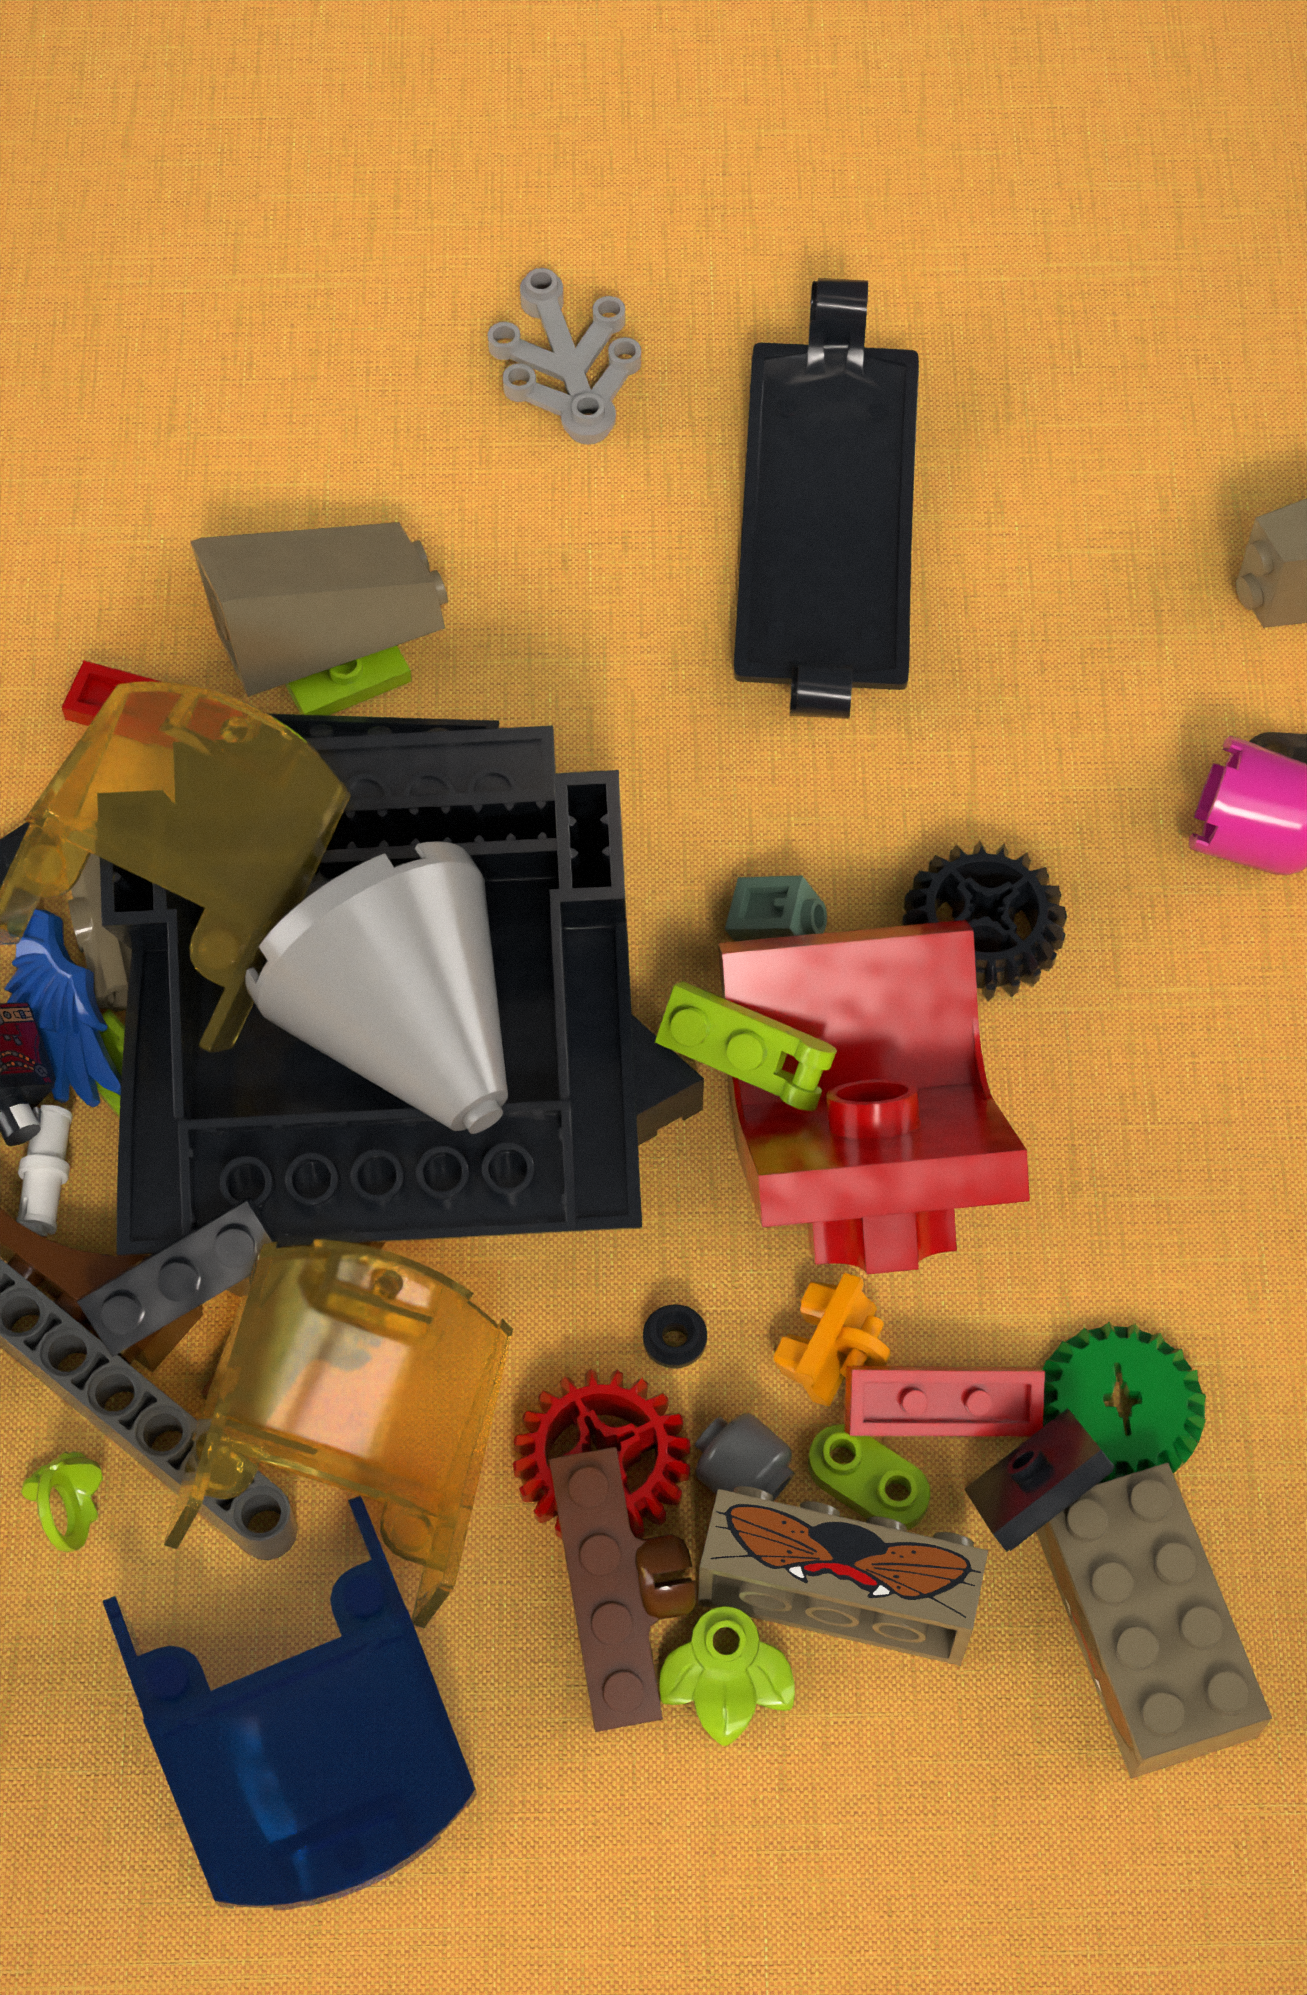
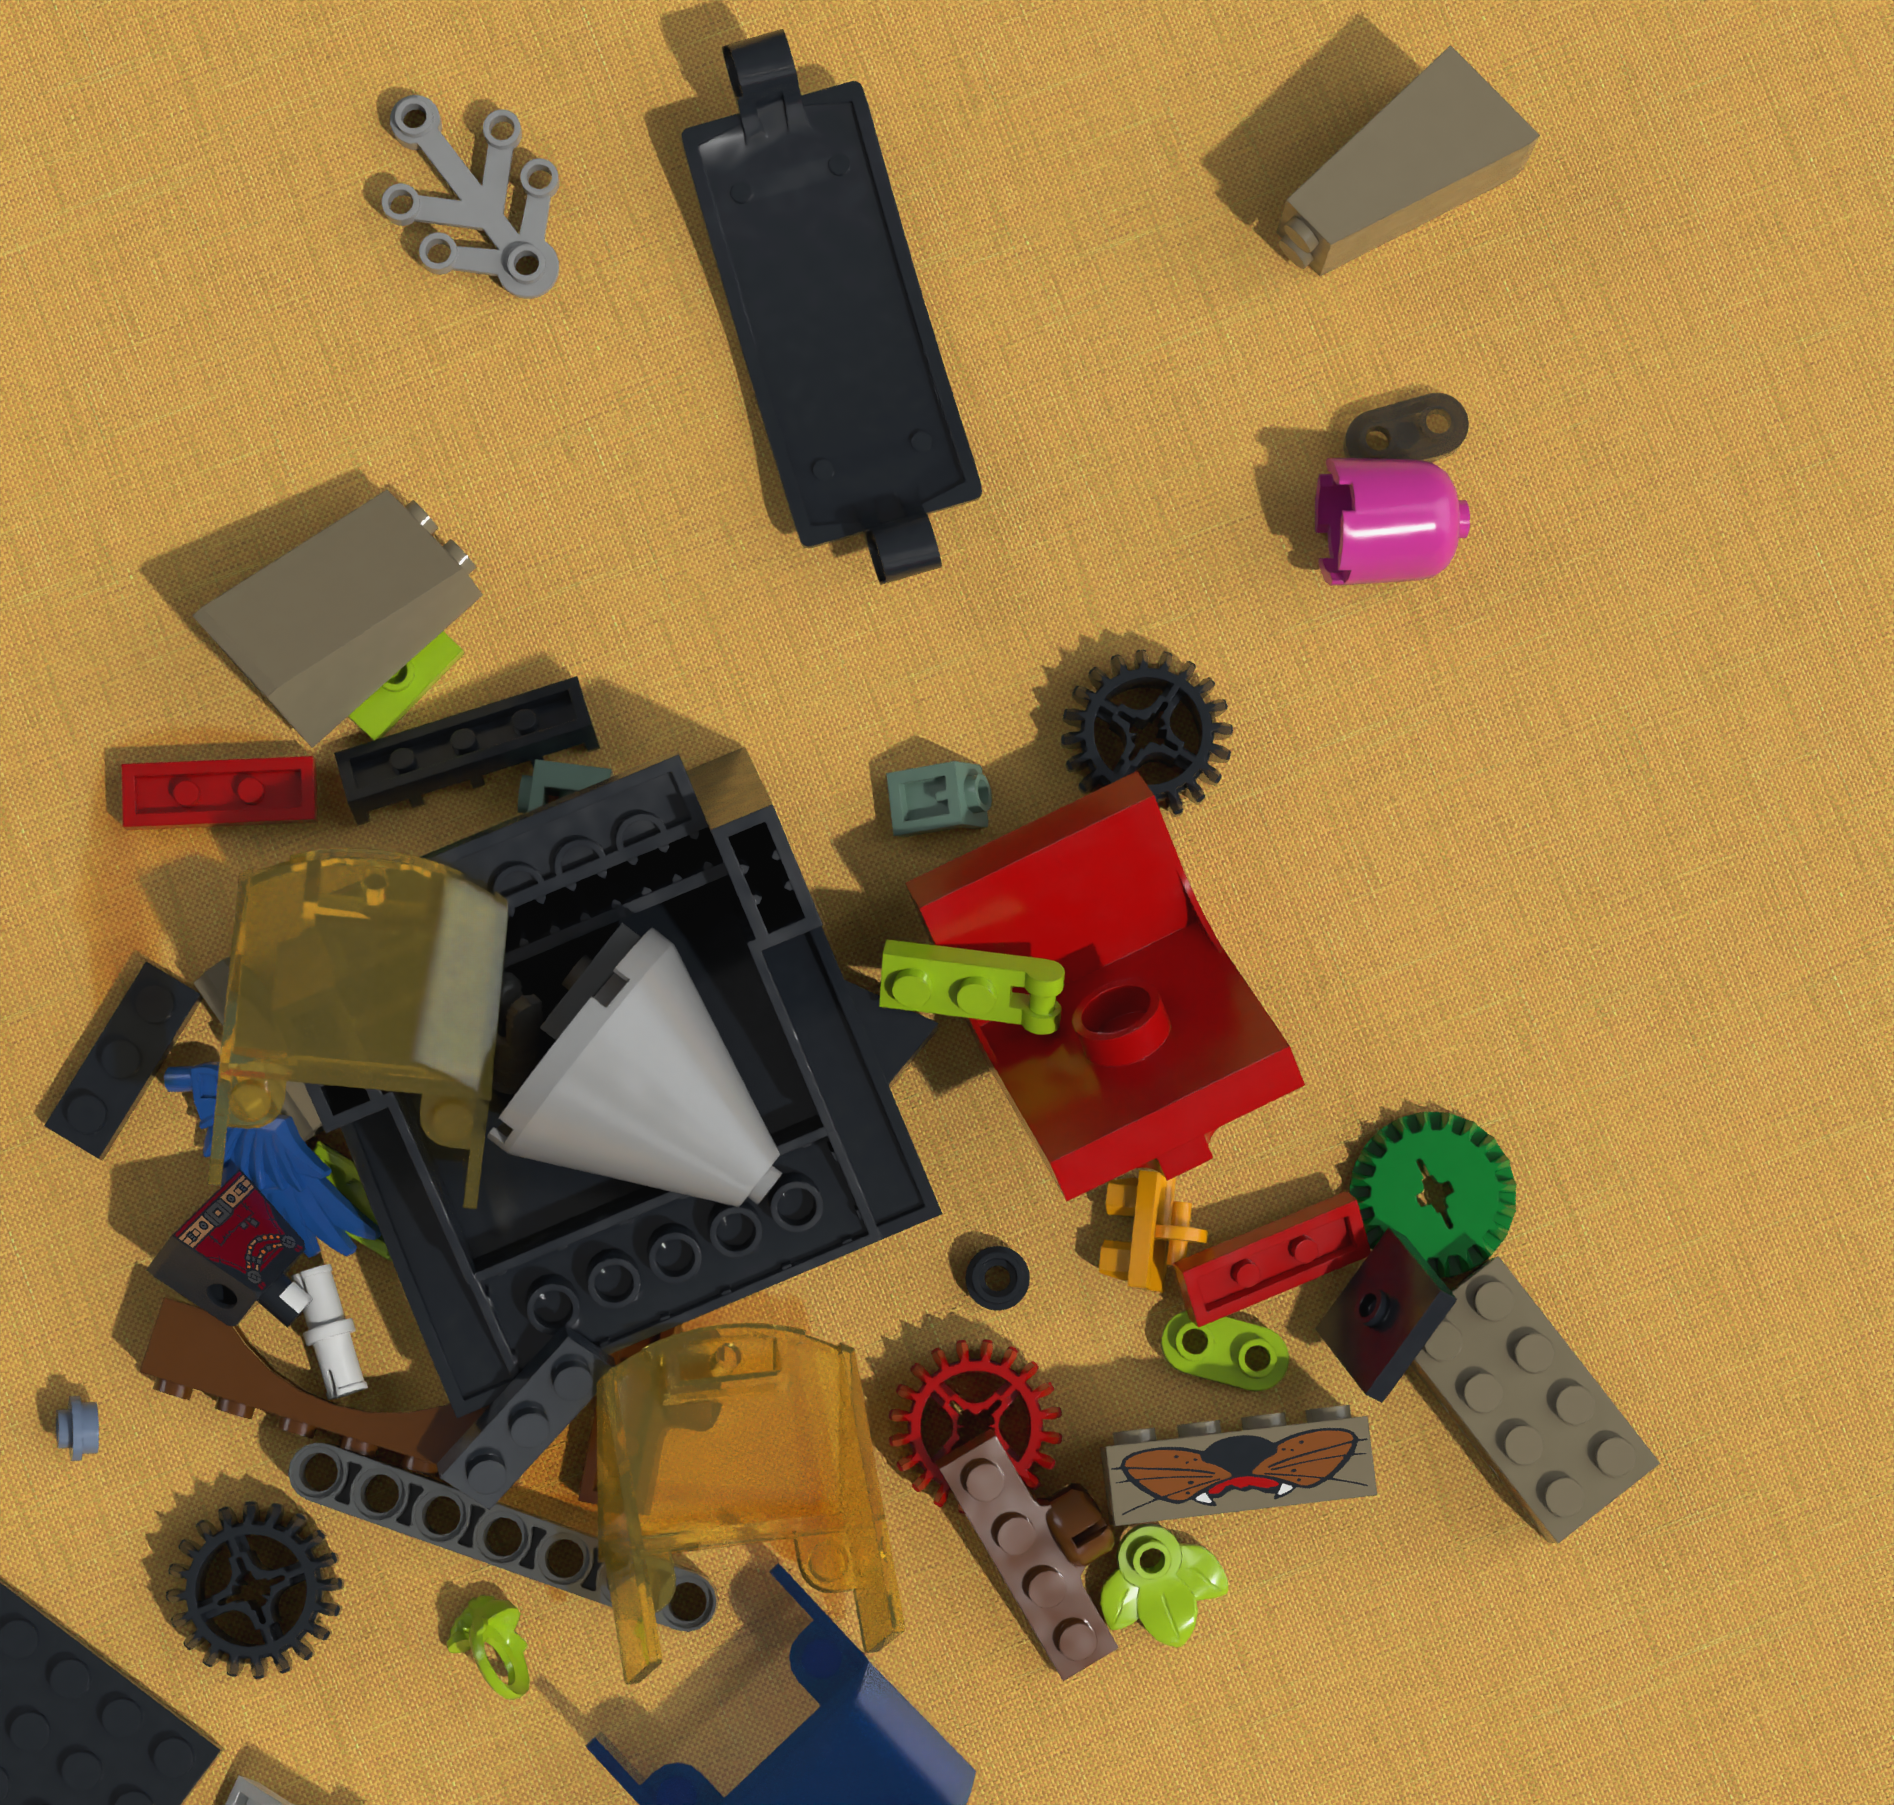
camera: 25 degrees left, 20 degrees up
(743, 1455) = (1108, 1385): dark grey head -> none

